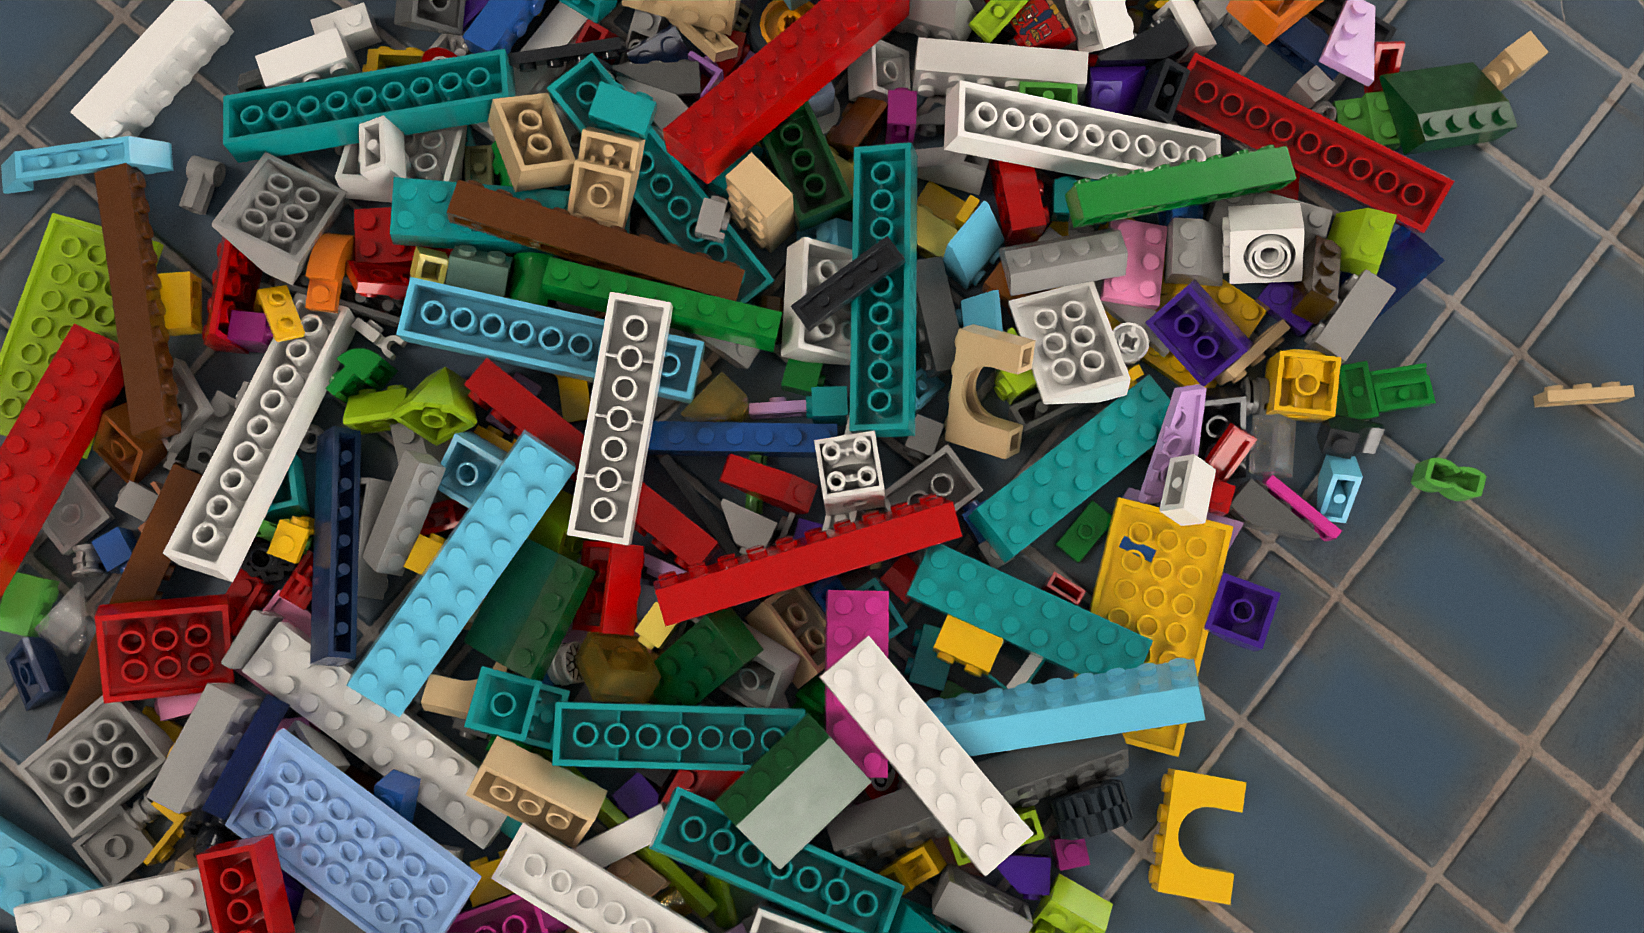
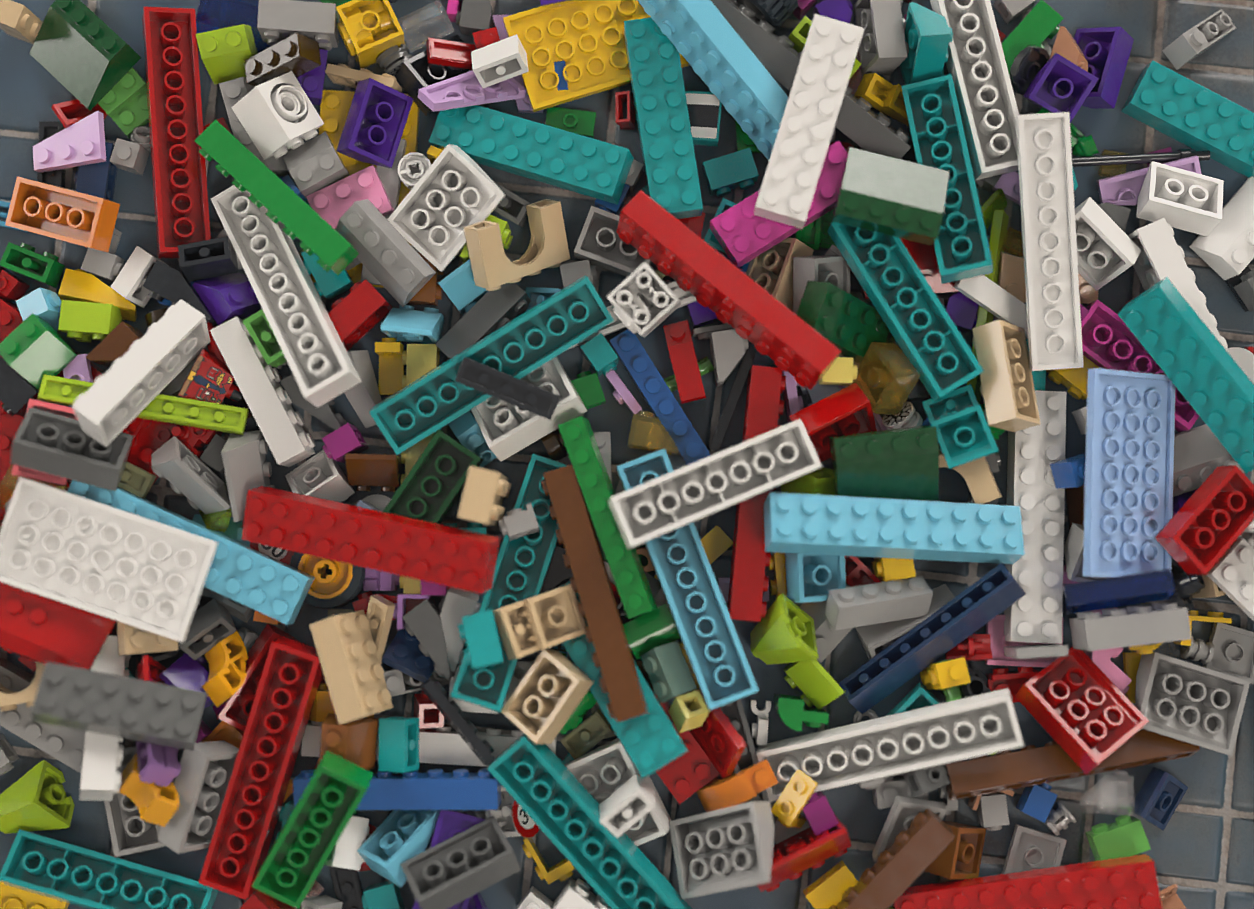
camera: 120 degrees left, 5 degrees up
(967, 646) = (709, 146): yellow brick -> none

